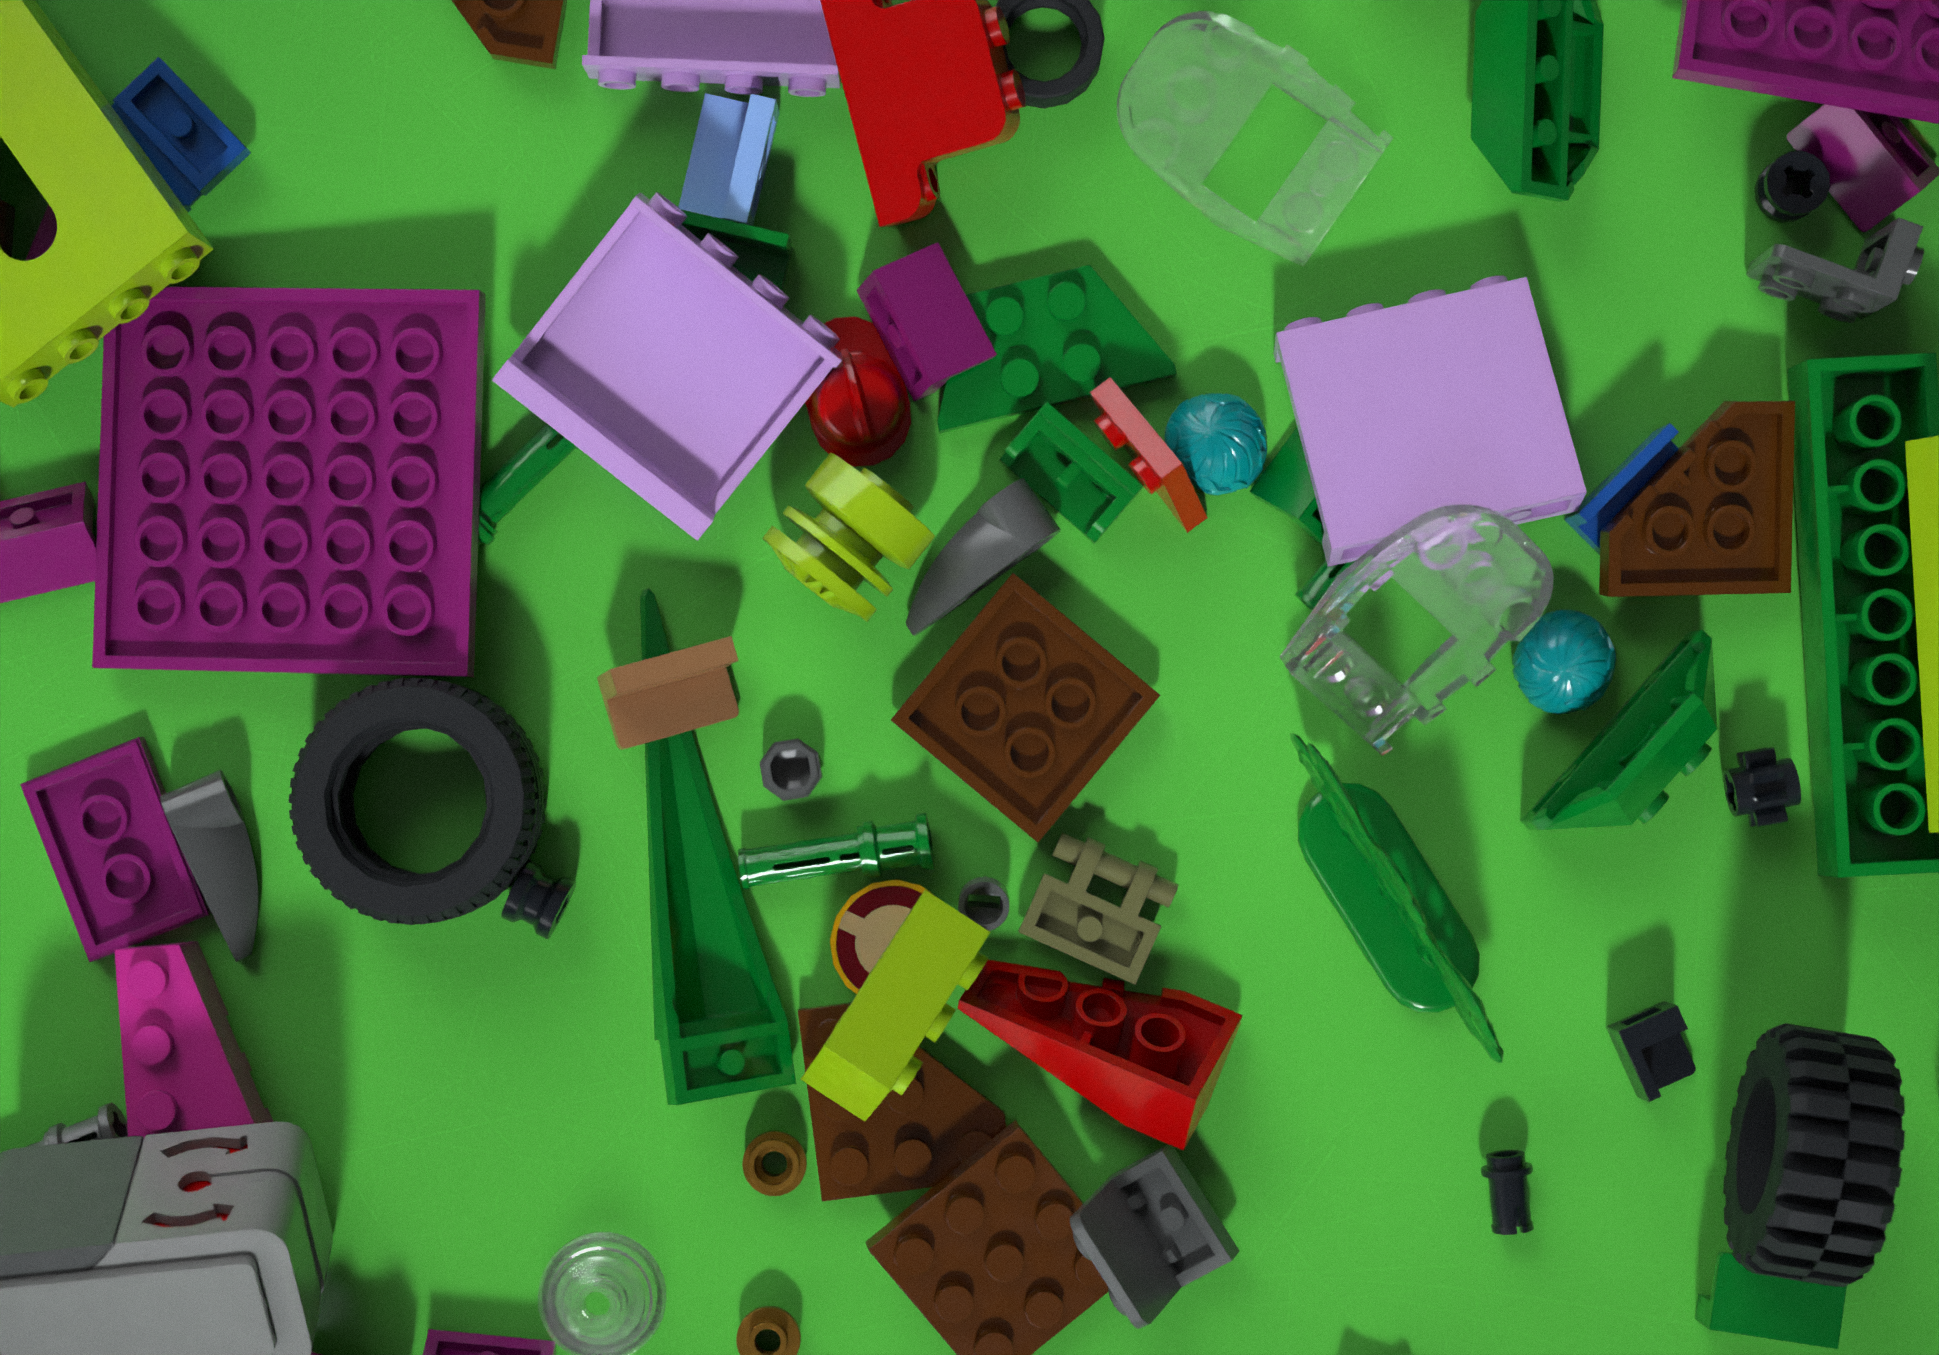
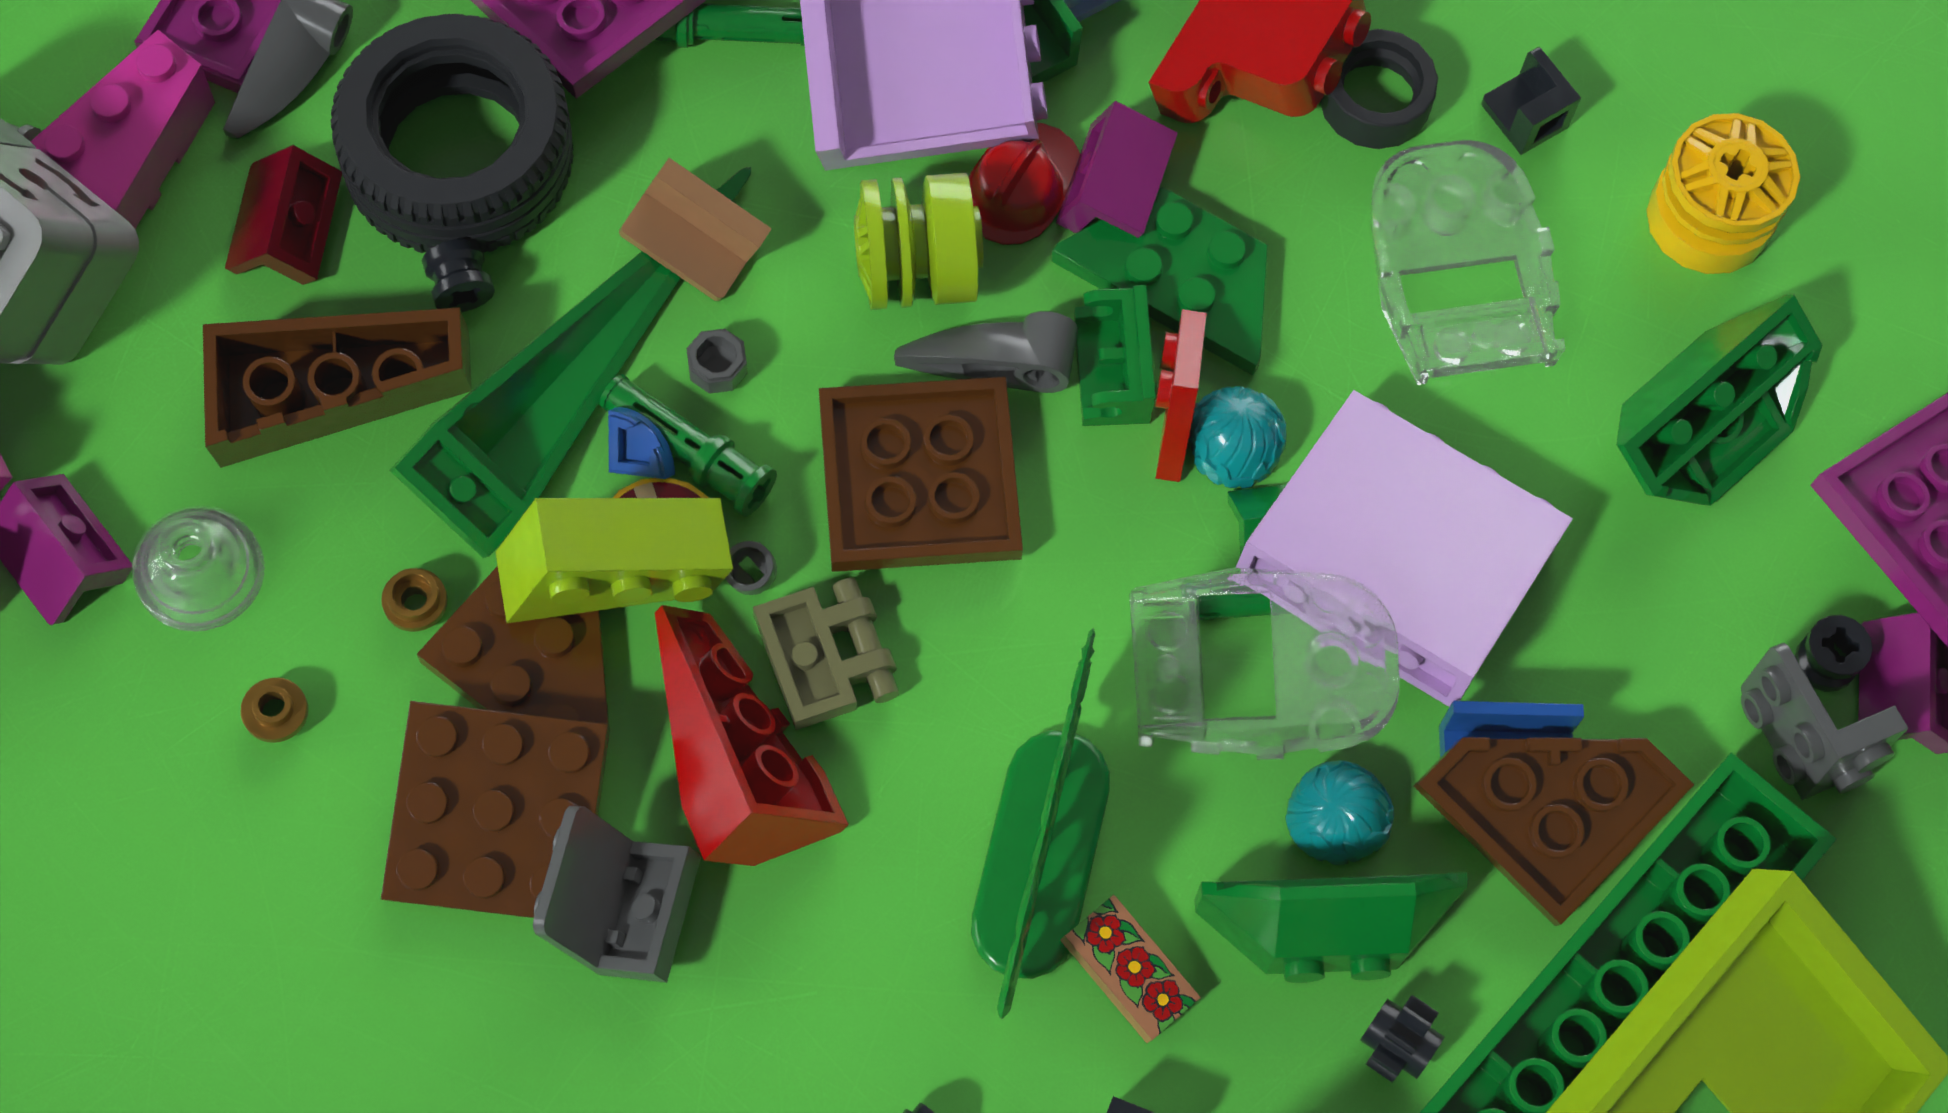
camera: 40 degrees right, 20 degrees down
(359, 982) = (285, 215): none -> dark red panel
(524, 1094) = (325, 374): none -> reddish brown wedge
(809, 895) = (637, 446): none -> blue tile
(1532, 921) = (1130, 969): none -> tile

